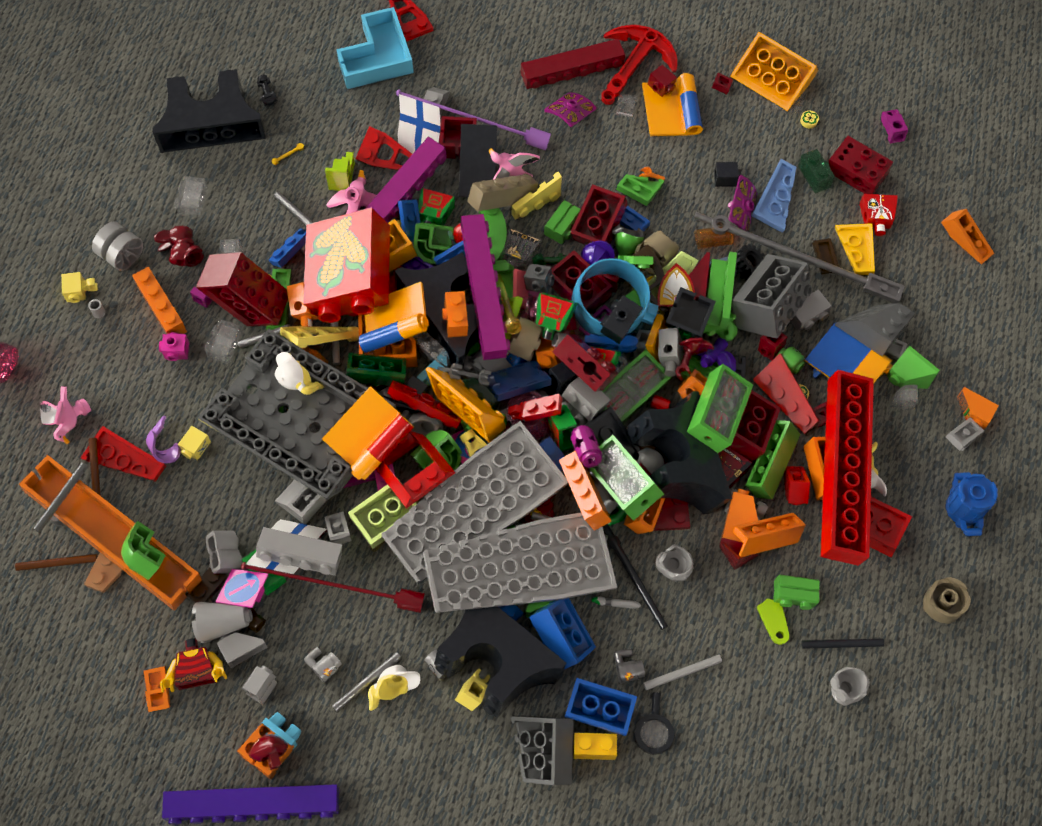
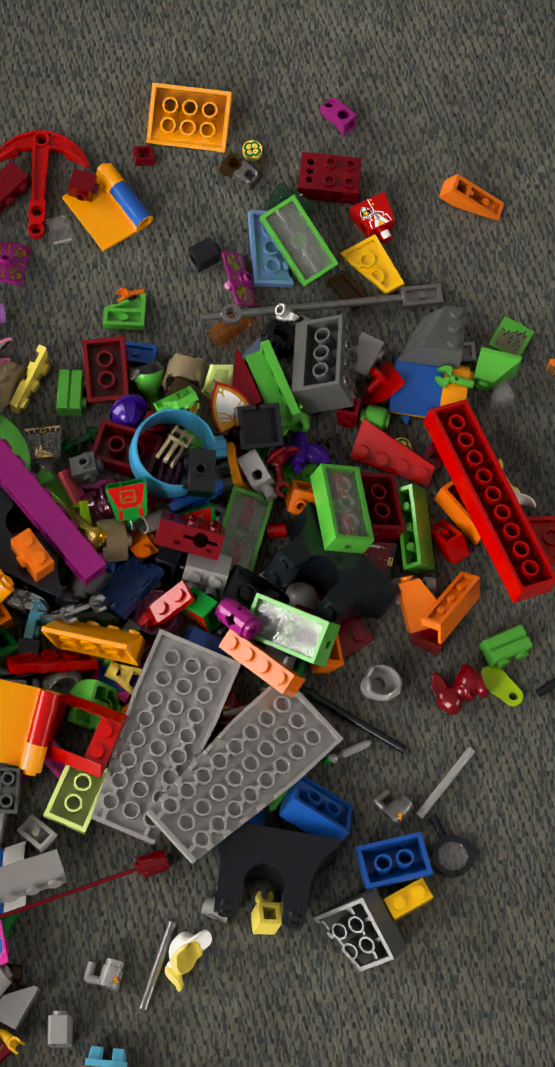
camera: 35 degrees left, 5 degrees up
(611, 289) = (176, 444): none -> dark tan arm
(745, 604) = (466, 686): none -> dark red animal
(763, 244) = (286, 314): none -> light grey piece
(789, 127) = (238, 170): none -> leg
(805, 197) = (298, 241): none -> clear brick
(812, 336) = (383, 384): none -> red shield
(871, 351) = (451, 378): none -> bright green bar
(942, 356) = (511, 337): none -> piece

